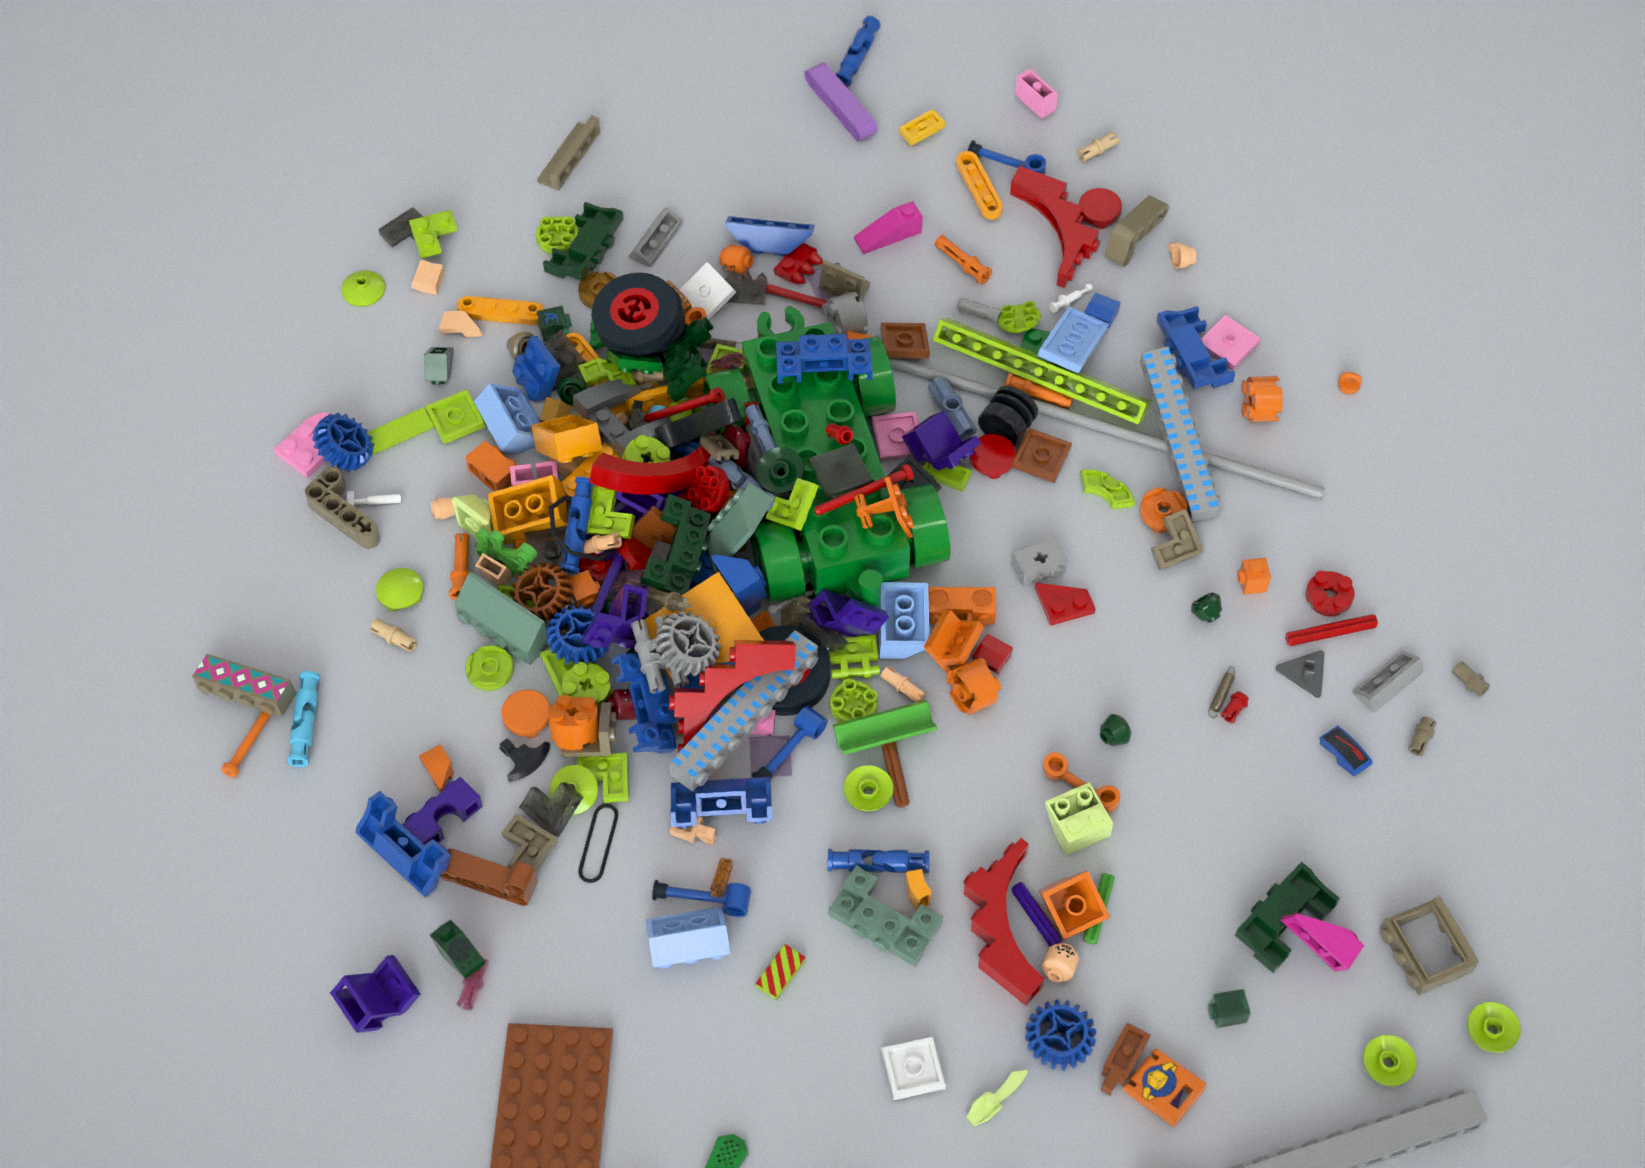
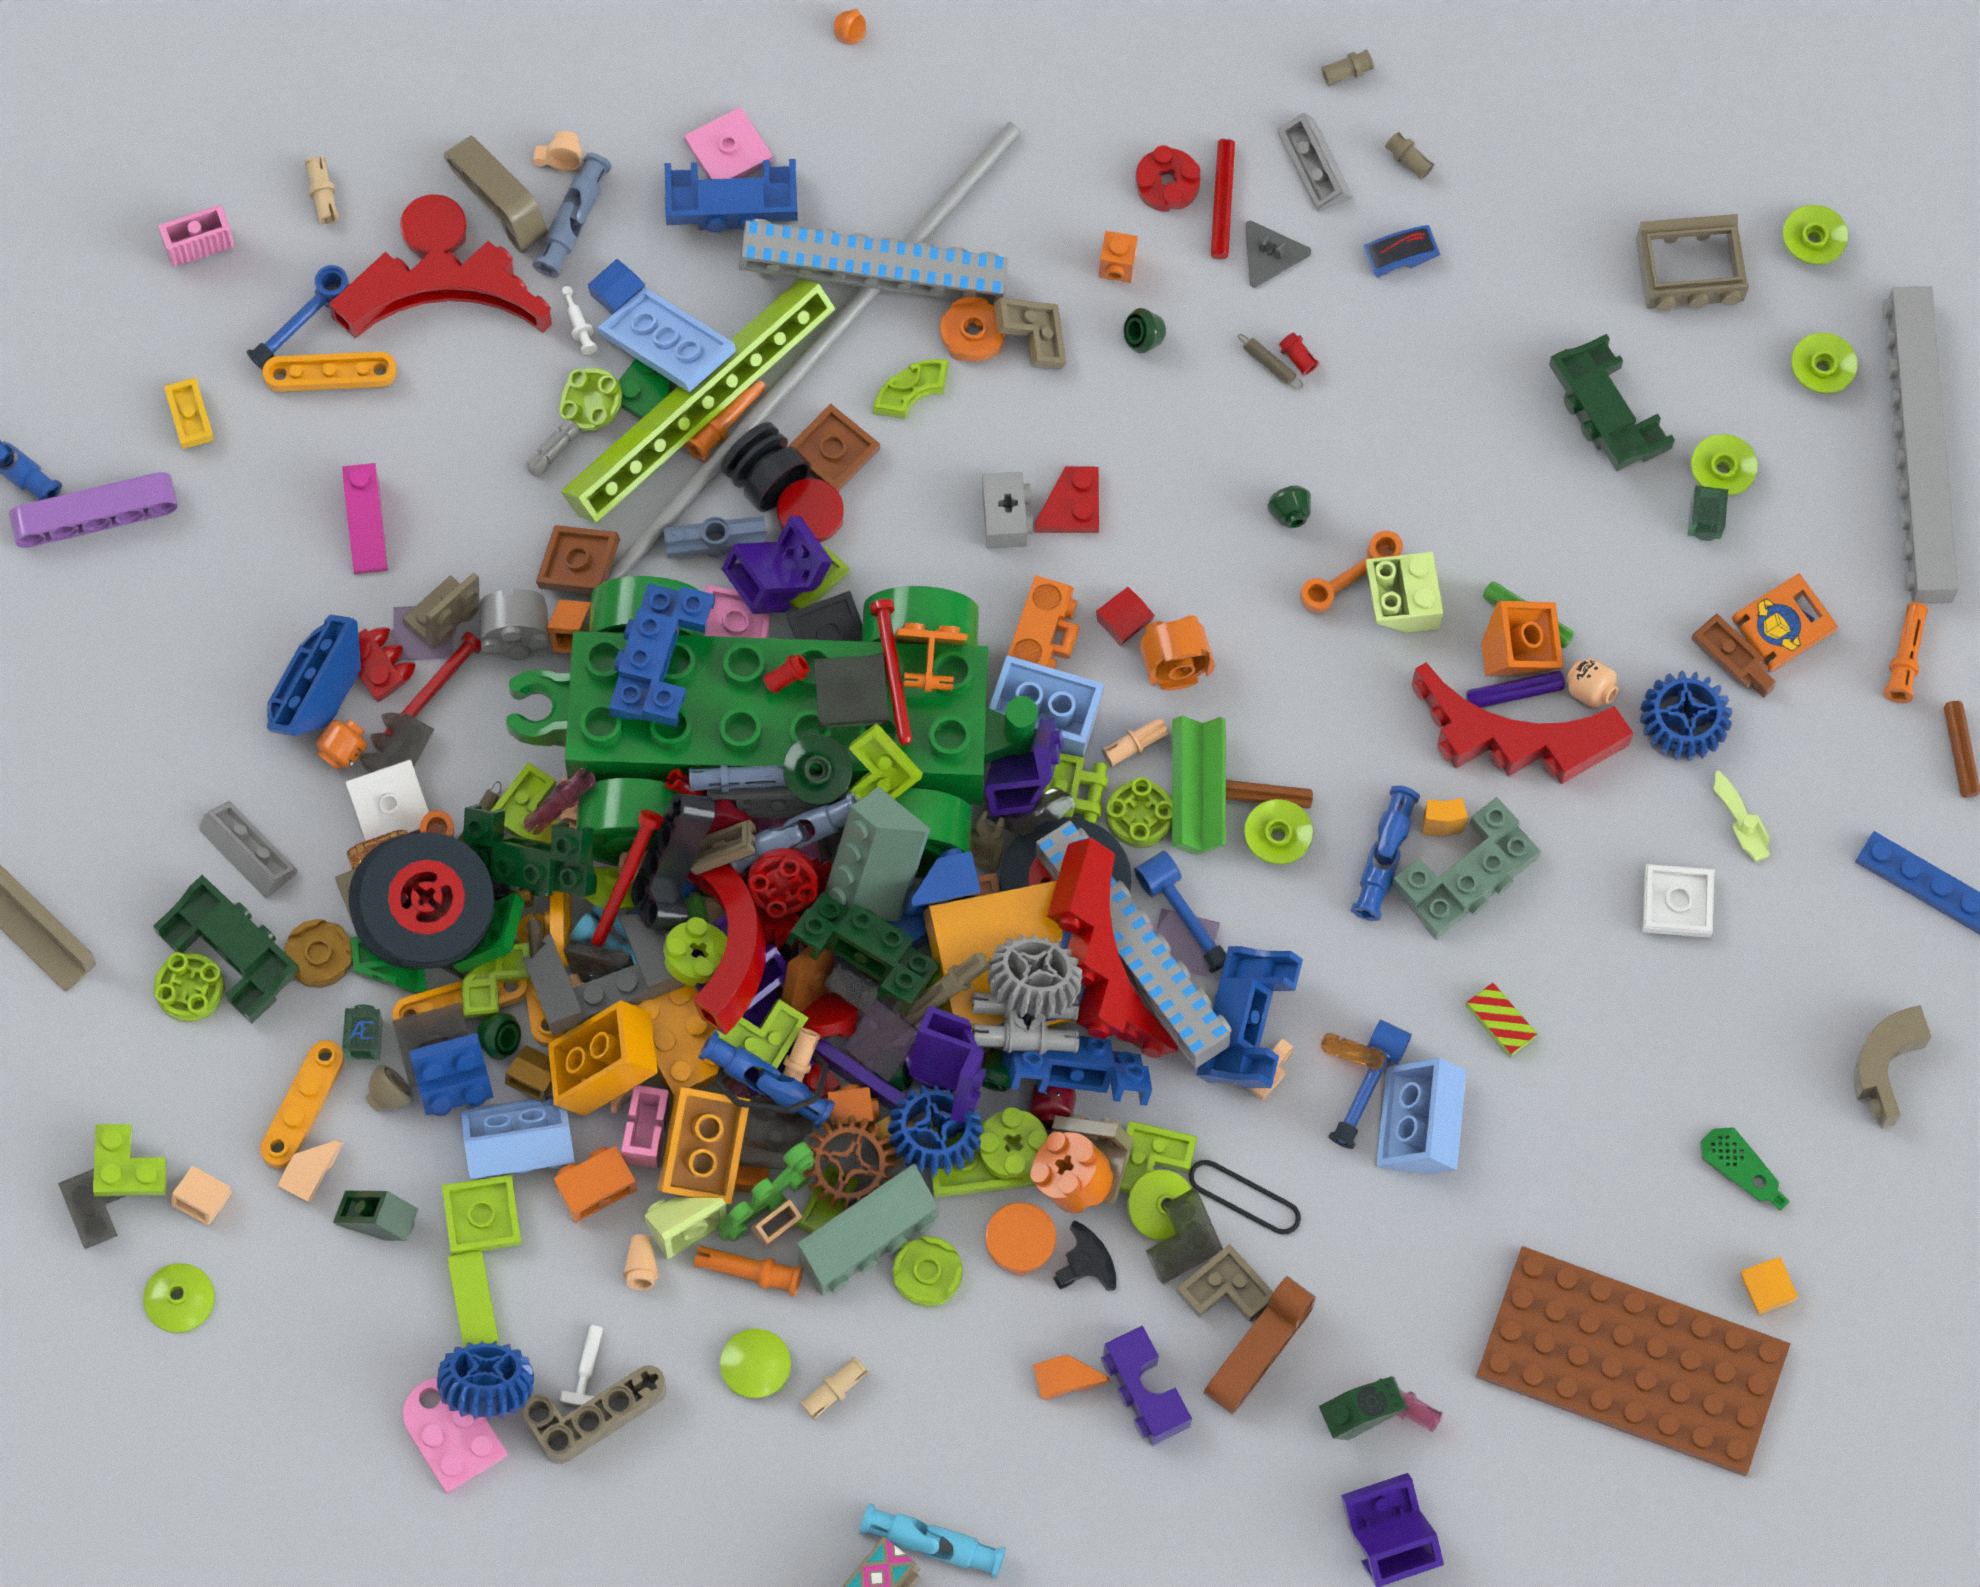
camera: 75 degrees left, 10 degrees up
(399, 848) = (1190, 1448): blue bracket -> none
(952, 640) = (1107, 651): orange bracket -> none
(969, 264) = (471, 431): orange pin -> none
(1144, 273) = (570, 218): none -> sand blue piece
(1262, 398) = (851, 141): orange brick -> none
(1281, 1002) = (1727, 452): none -> lime dish
(1332, 943) = (1663, 367): dark pink slope -> none

